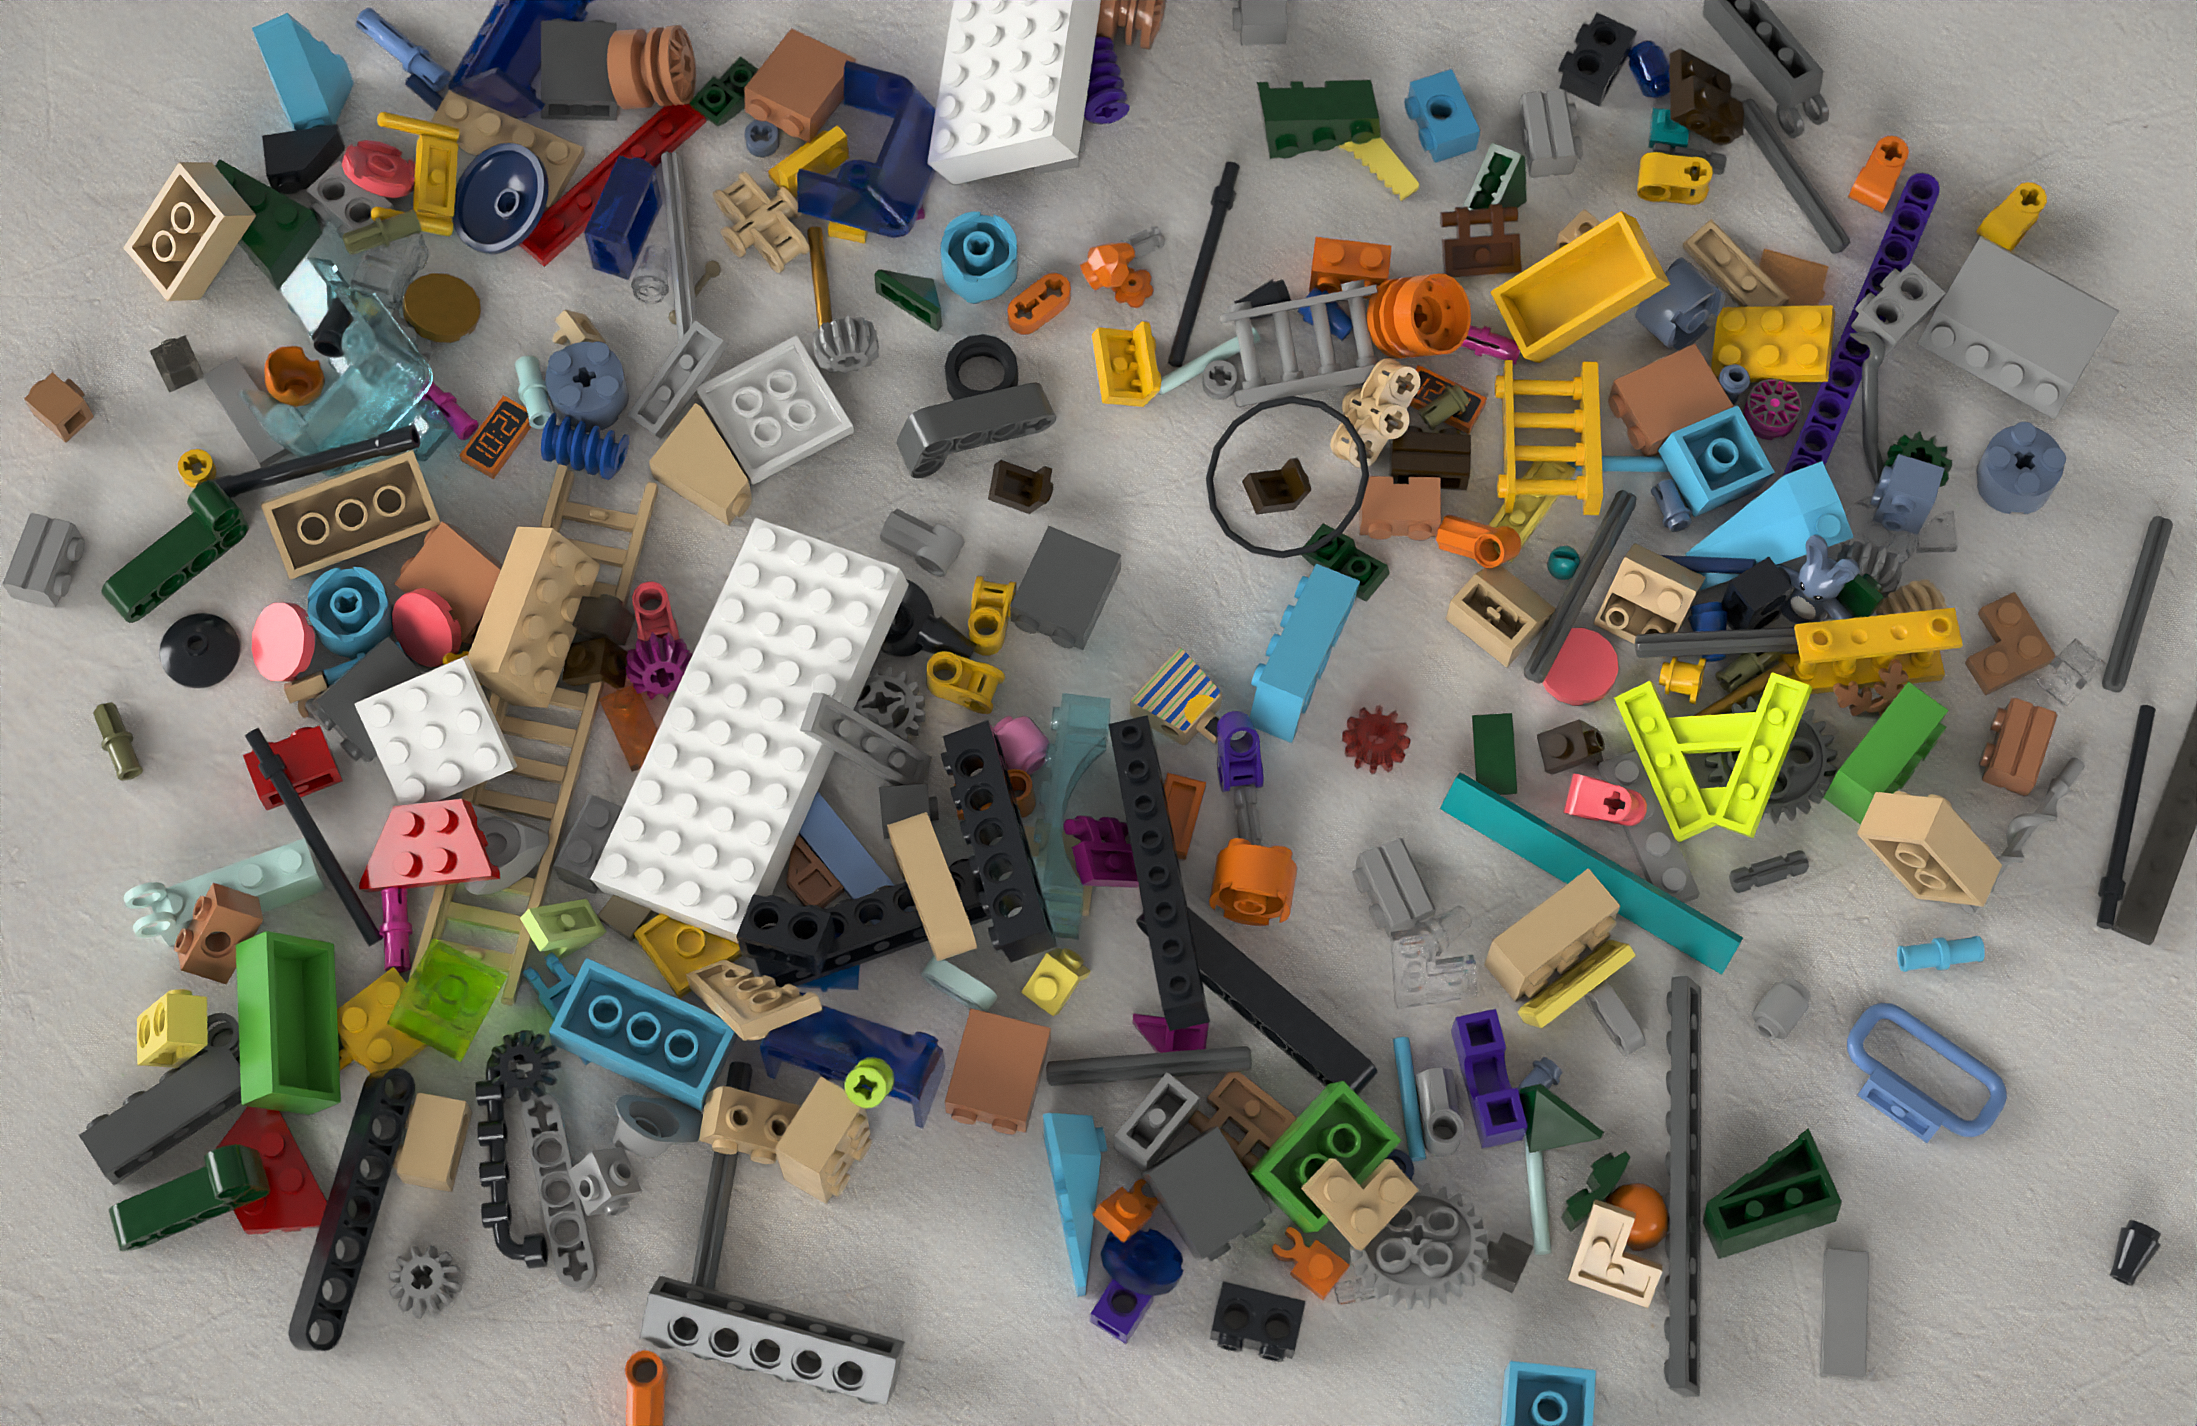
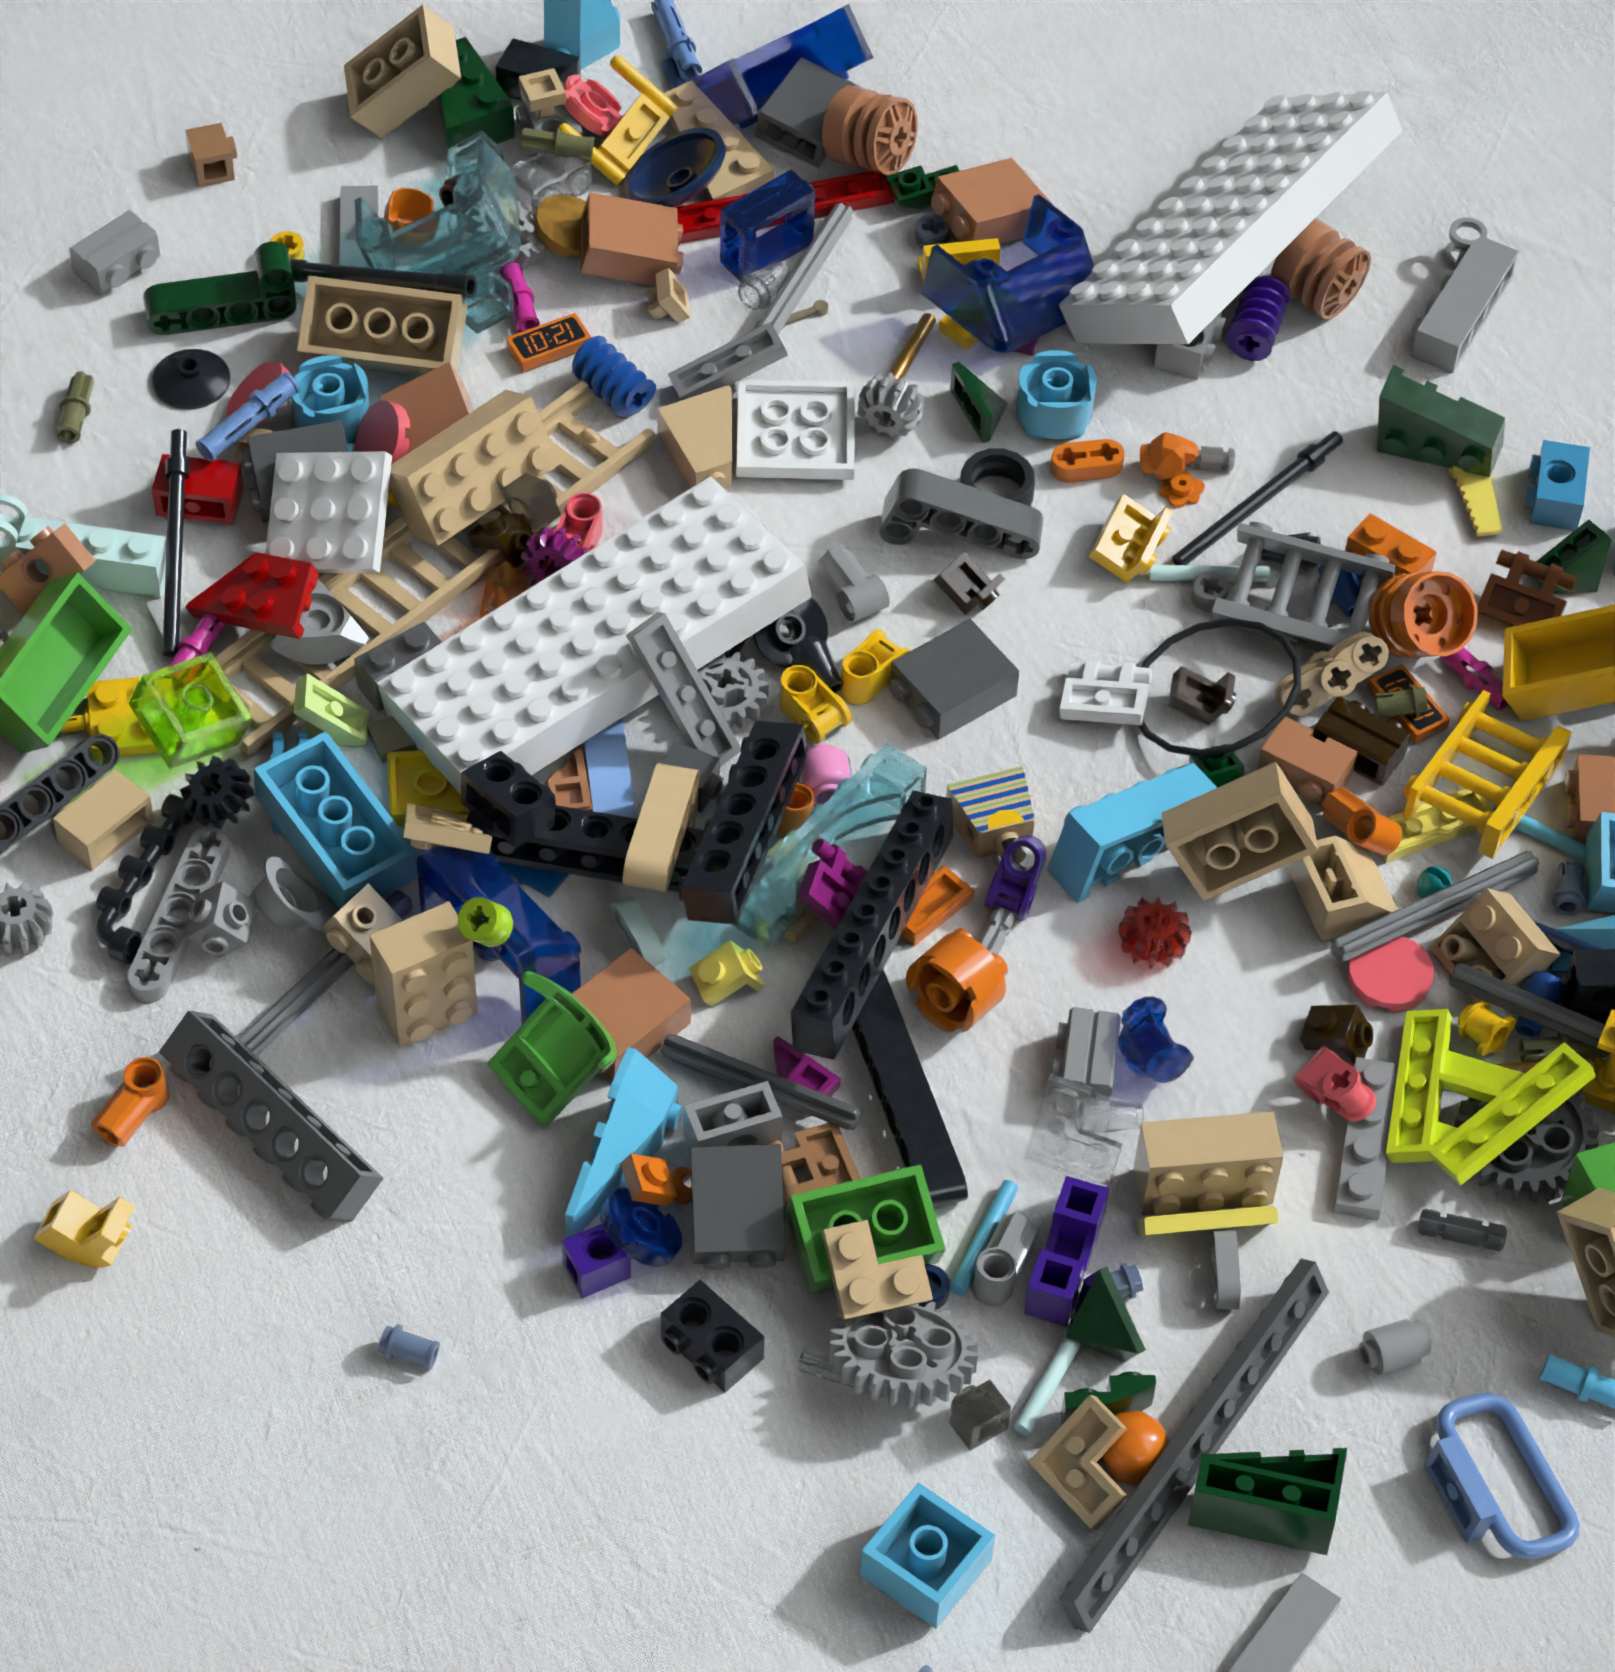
camera: 30 degrees right, 15 degrees down
(176, 363) = (326, 167): clear smoke plate -> none
(303, 664) = (260, 406): none -> medium blue pin
(336, 186) = (542, 91): none -> tan tile
(507, 296) = (629, 239): none -> nougat brick
(533, 391) = (602, 317): light aqua pin -> none
(587, 384) = (649, 332): sand blue brick -> none
(761, 222) = (885, 289): tan axle -> none
(973, 1144) = (553, 1051): none -> bright green piece
(1202, 538) = (1105, 693): none -> white plate
(1315, 1266) = (797, 1323): orange plate -> none
(1402, 617) = (1239, 831): none -> tan brick
(1438, 851) = (1148, 1043): none -> clear blue hair
(1495, 752) = (1258, 1000): dark green slope -> none
(1568, 858) = (1303, 1165): teal tile -> none

